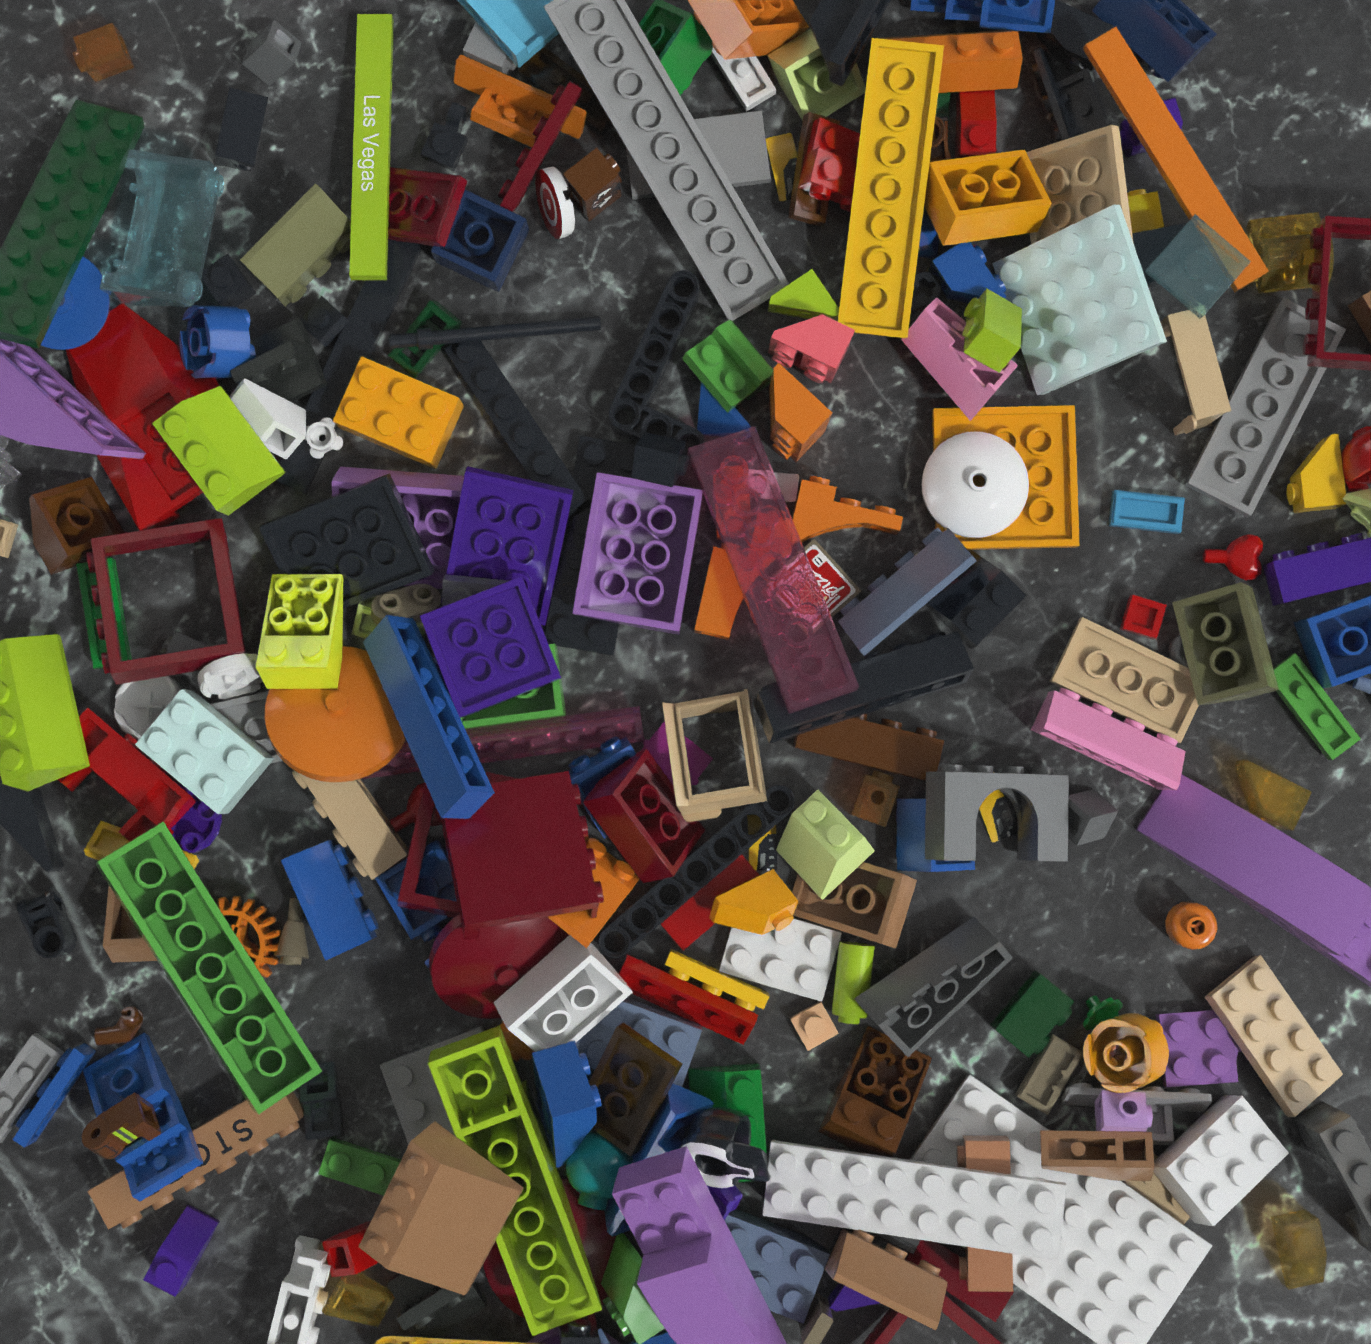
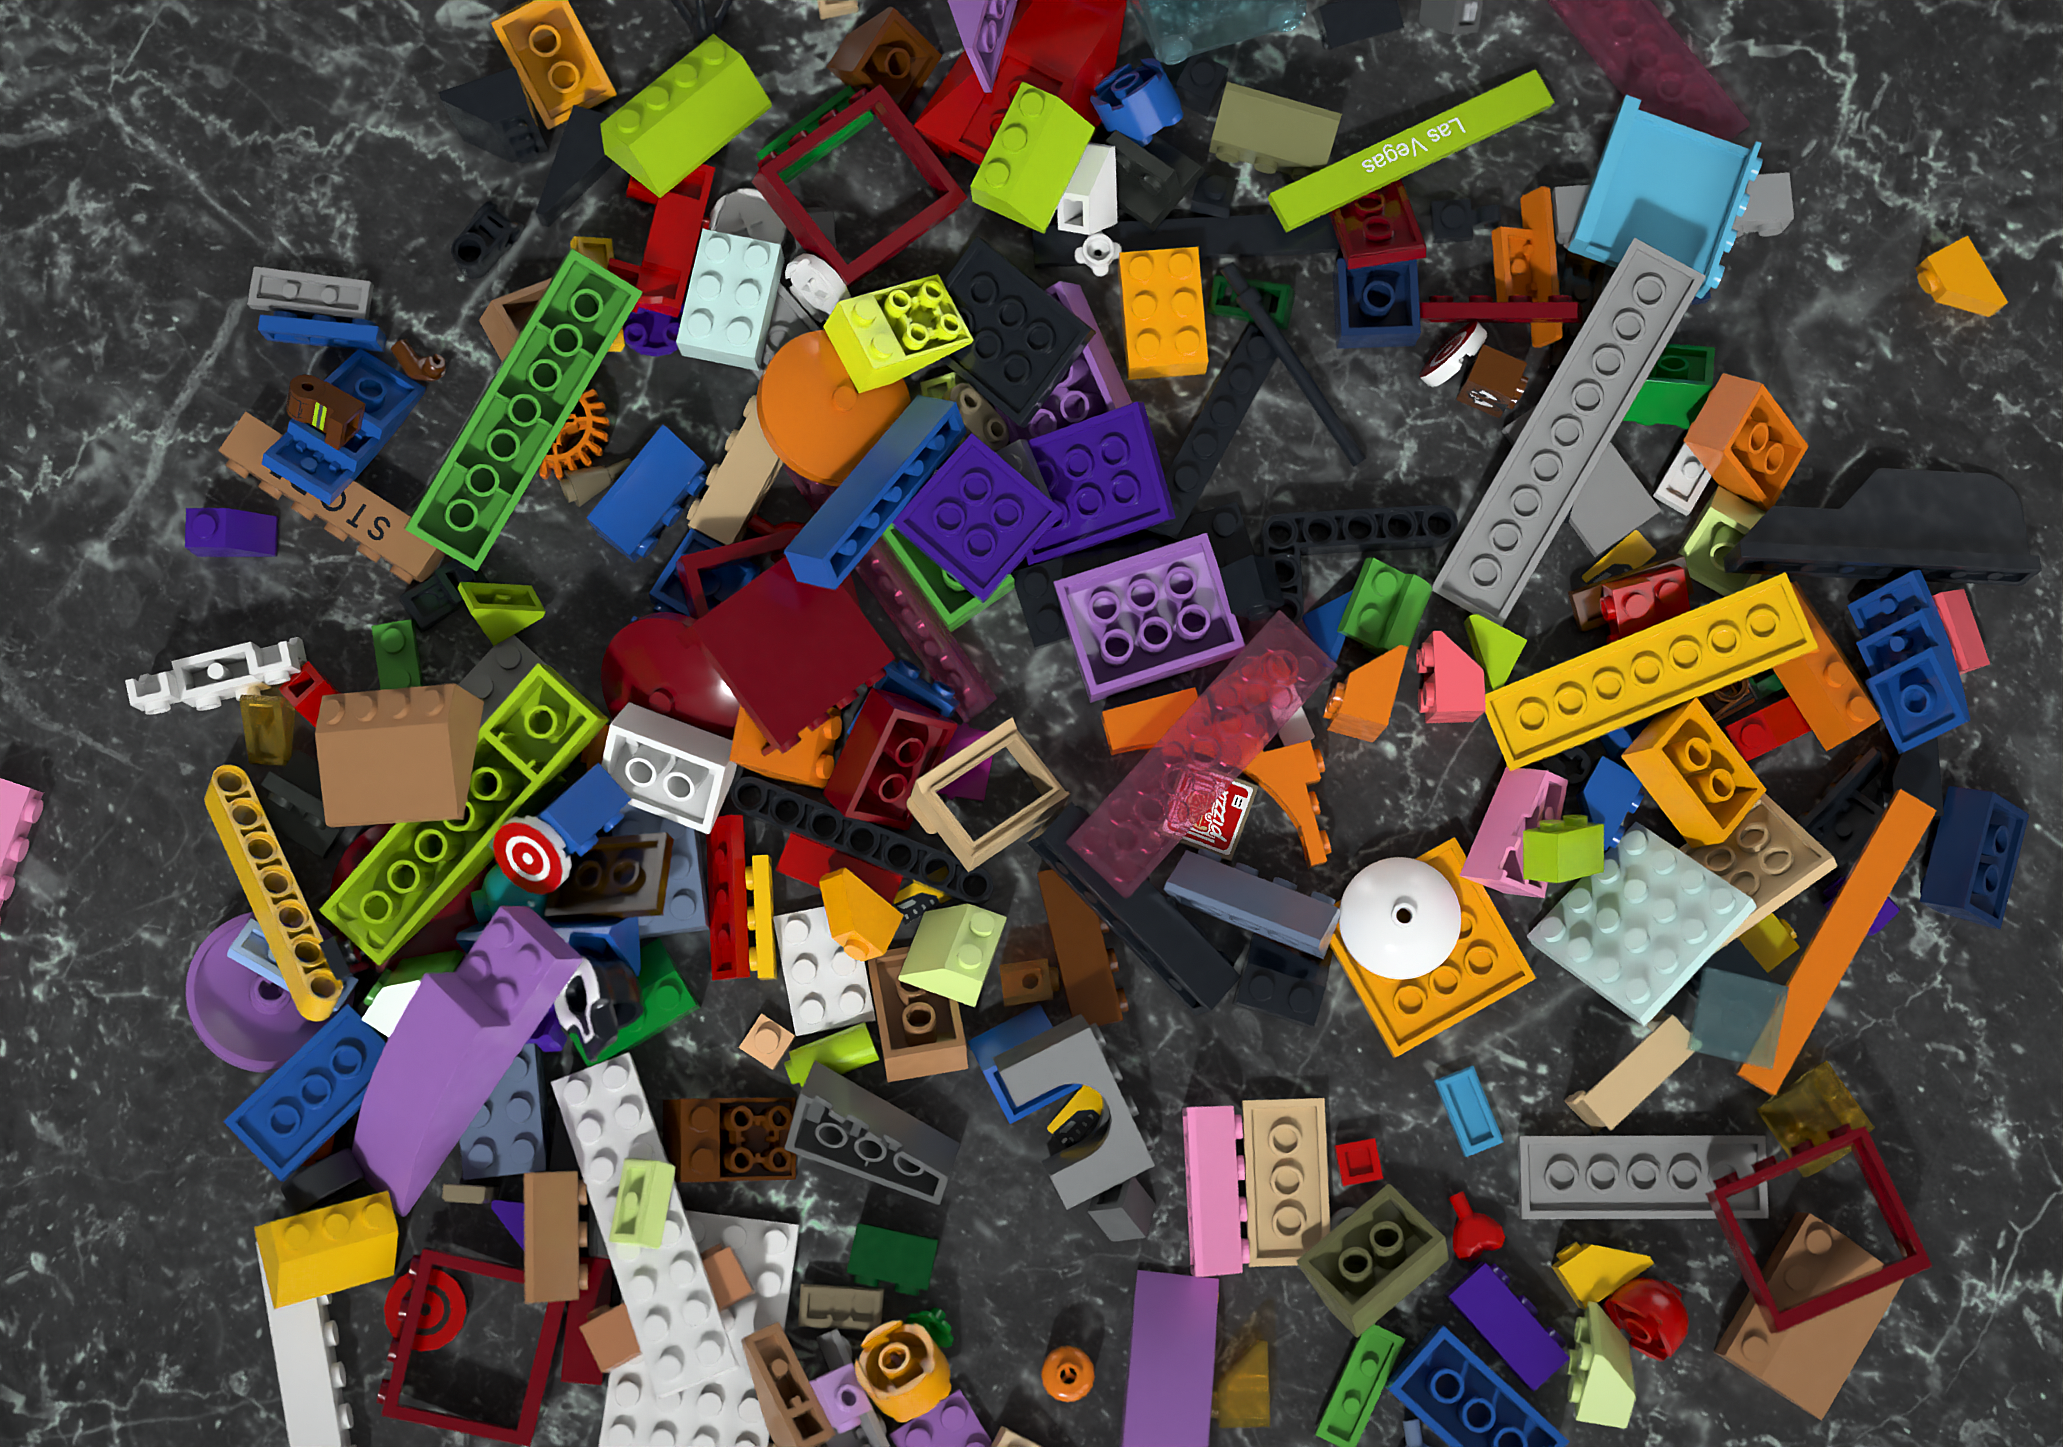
camera: 60 degrees right, 5 degrees down
(359, 1063) = (501, 608): none -> lime slope
(579, 1144) = (531, 855): none -> red tile
(900, 1194) = (642, 1203): none -> yellowish green slope

